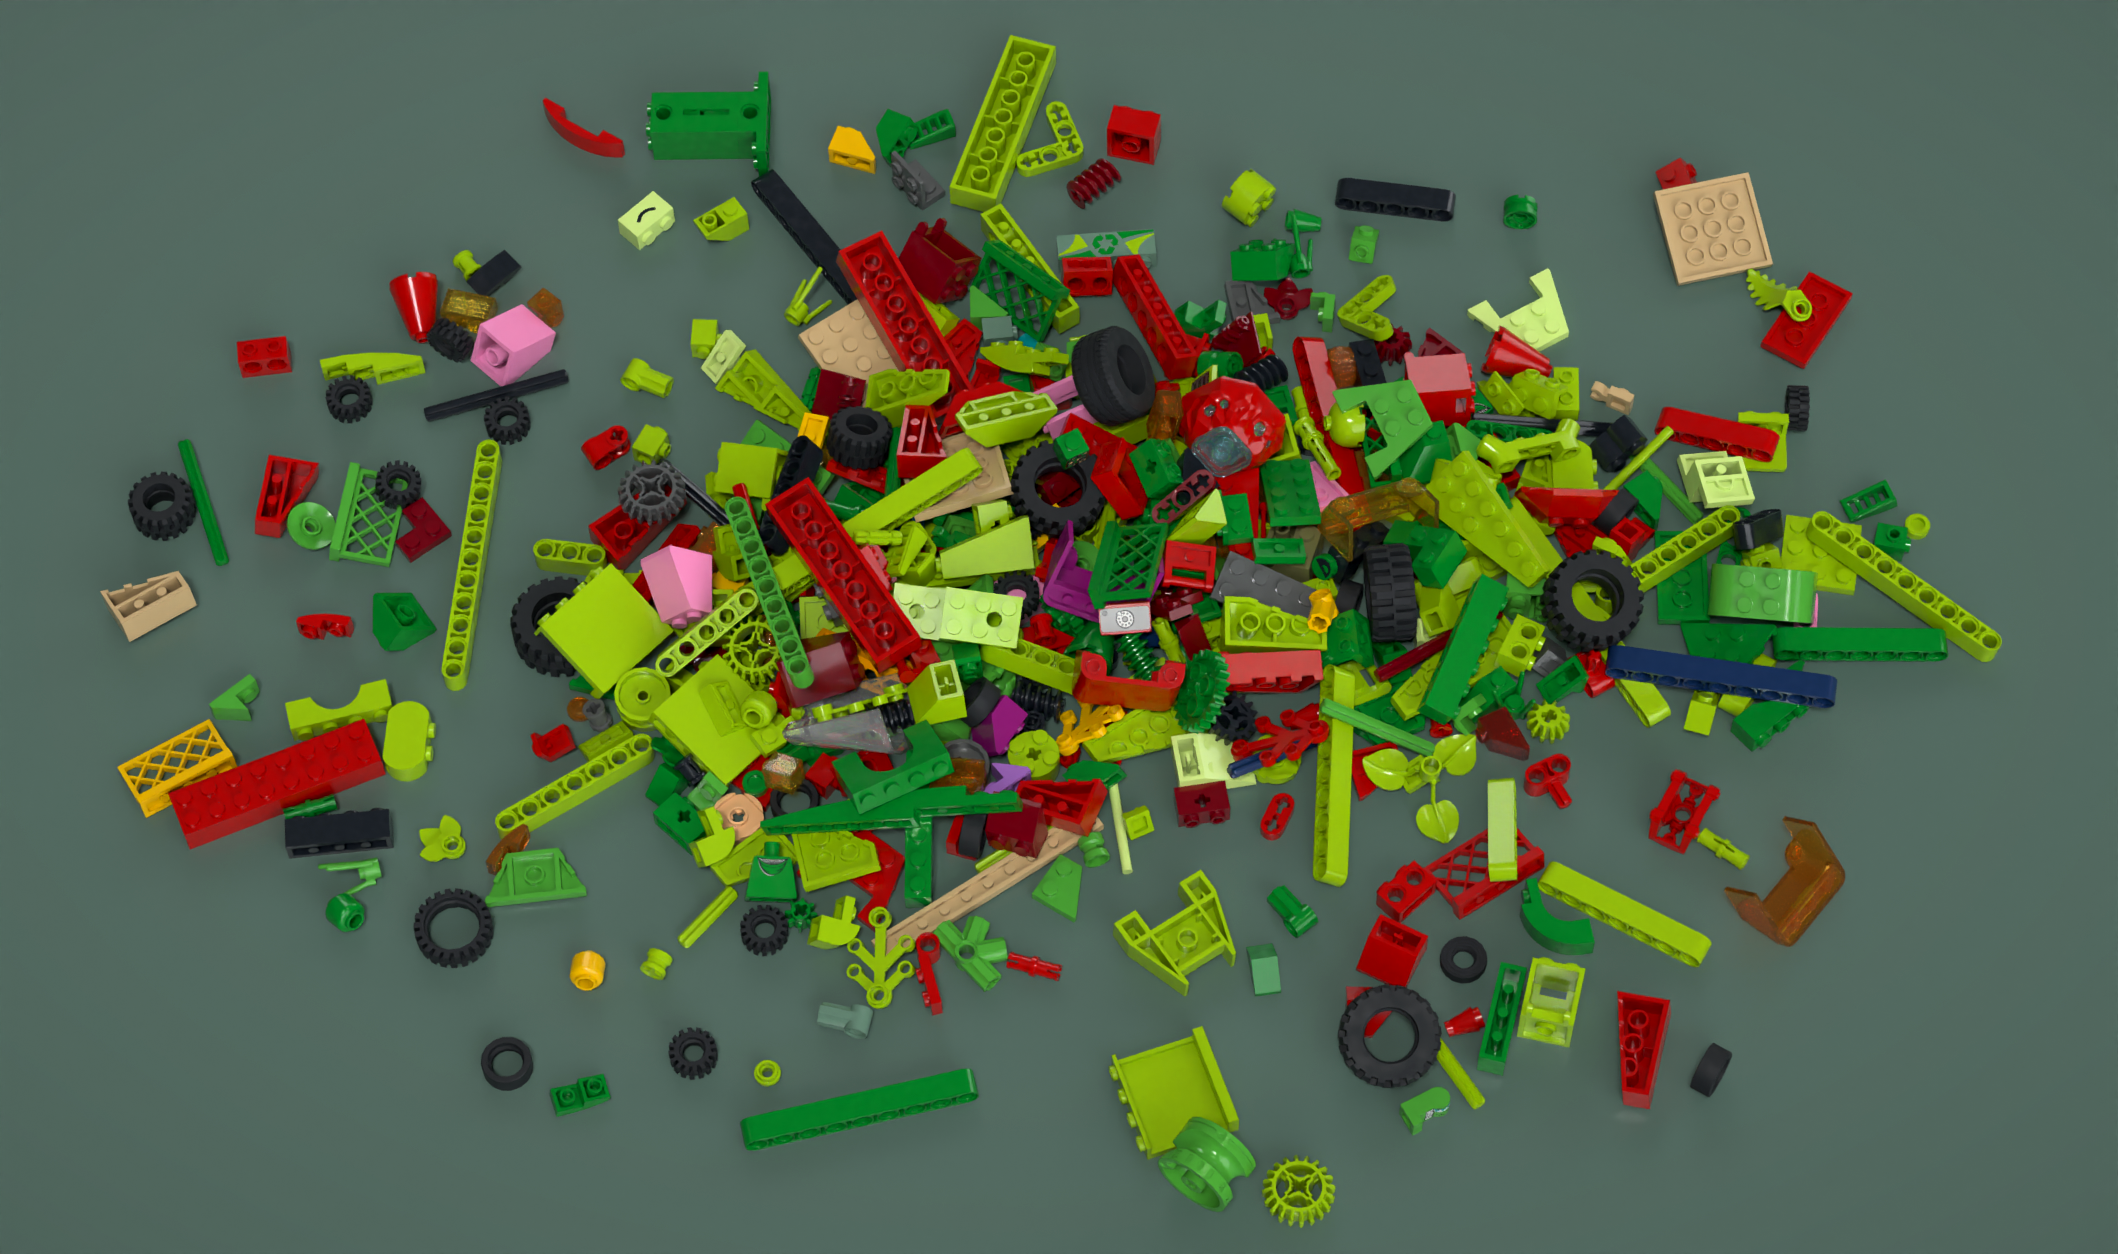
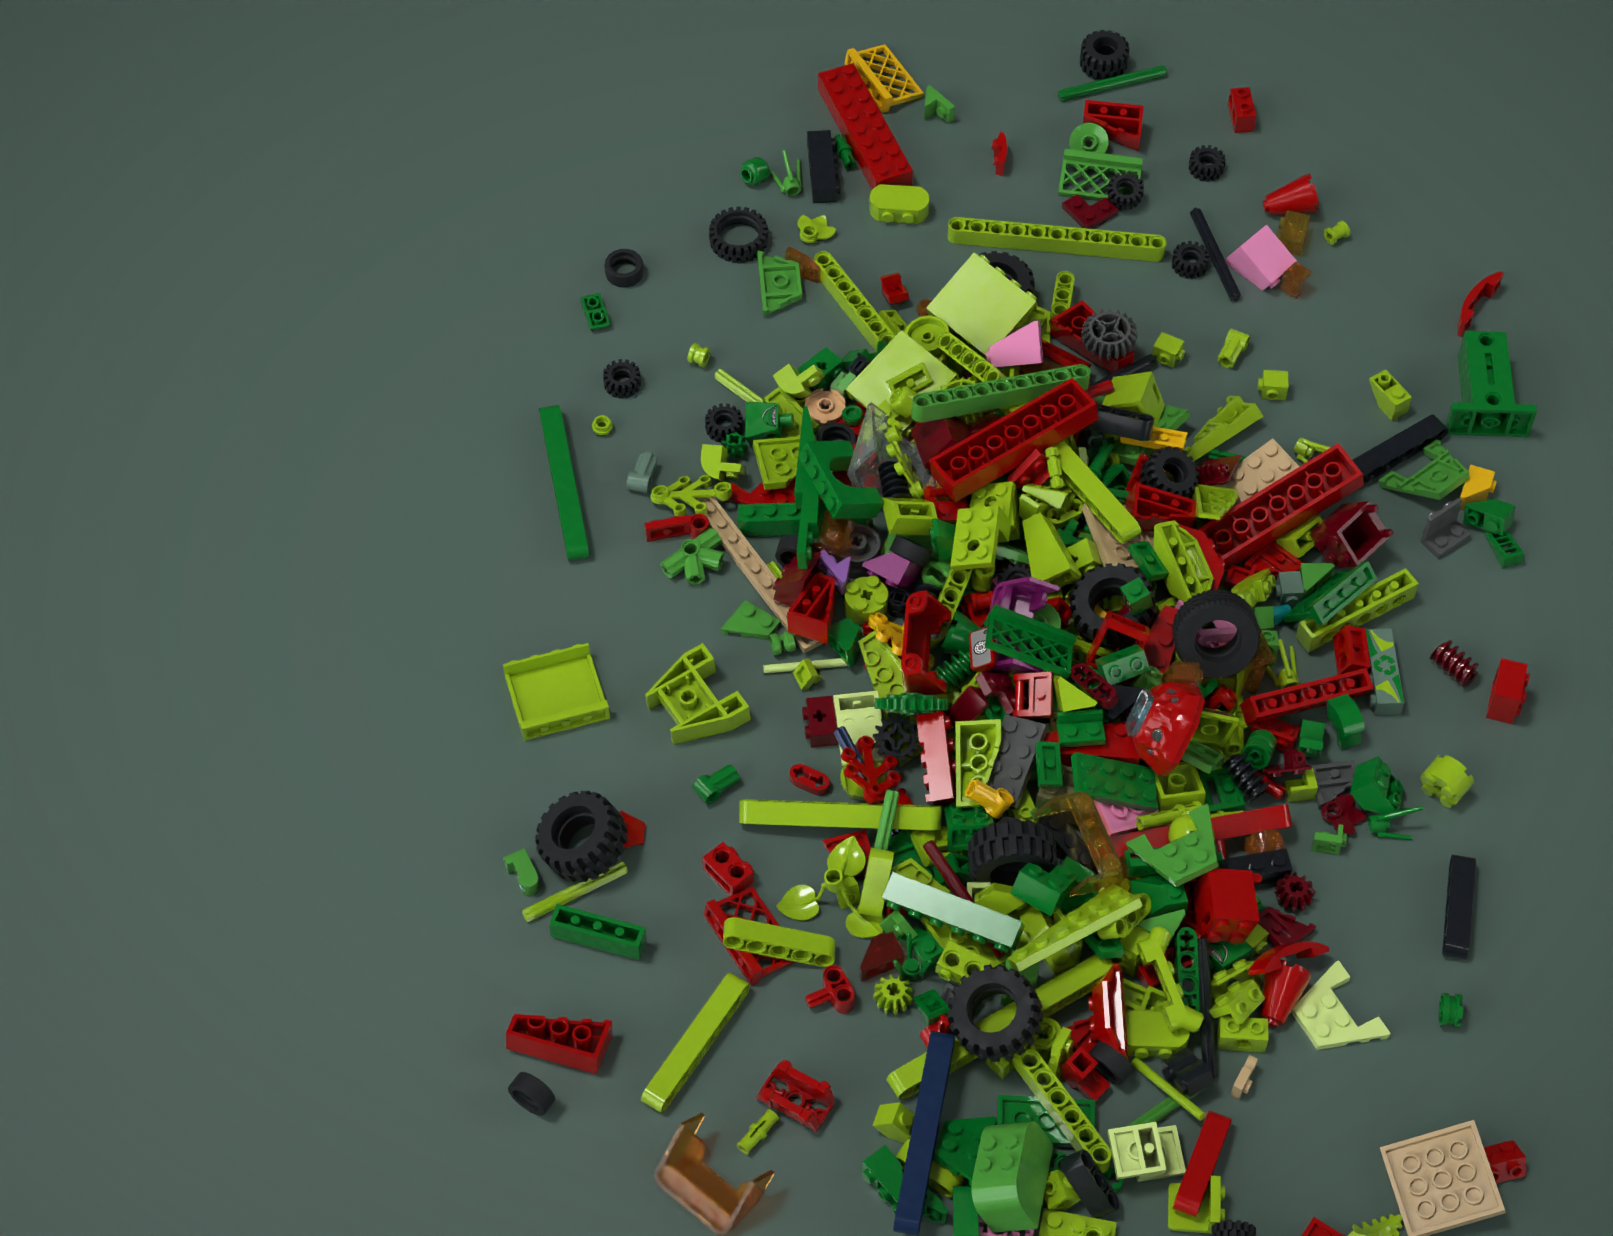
camera: 90 degrees right, 5 degrees down
(149, 604) = (1017, 50): tan wedge -> none
(311, 720) = (921, 147): lime arch -> none
(382, 366) = (1236, 174): lime slope -> none
(399, 621) = (1005, 196): green slope -> none
(450, 340) = (1260, 216): black tyre -> none
(493, 273) = (1330, 248): black slope -> none
(587, 970) = (696, 312): yellow head -> none
(595, 711) = (921, 311): dark grey bush -> none
(606, 447) = (1165, 320): red piece -> none
(646, 220) = (1389, 346): yellowish green brick -> none
(723, 356) = (1258, 395): yellowish green slope -> none
(783, 772) = (851, 425): clear yellow brick -> none
(846, 182) = (1434, 479): none -> bright green wing
(1000, 449) = (1148, 561): none -> green plate
(1003, 124) = (1511, 594): lime brick -> none
(1034, 966) = (679, 599): red pin -> none
(1059, 149) = (1495, 644): lime beam -> none
(1179, 281) = (1347, 719): none -> green brick
(1206, 1163) = (479, 700): bright green piece -> none
(1264, 969) = (666, 761): slope -> none
(1305, 221) = (1427, 827): green cone -> none
(1312, 1176) = (462, 763): lime gear -> none
(1358, 311) = (1328, 864): lime beam -> none
(1363, 244) = (1409, 877): bright green bracket -> none
(1392, 952) = (670, 854): red slope -> none
(1422, 732) = (875, 882): none -> lime beam
(1462, 944) = (666, 925): black tyre -> none
(1465, 1022) = (600, 905): red cone -> none
(1482, 349) = (1270, 959): none -> red slope
(1548, 1017) = (603, 967): lime container -> none
(1552, 933) = (685, 976): green arch -> none
(1648, 491) = (1130, 1097): green slope -> none

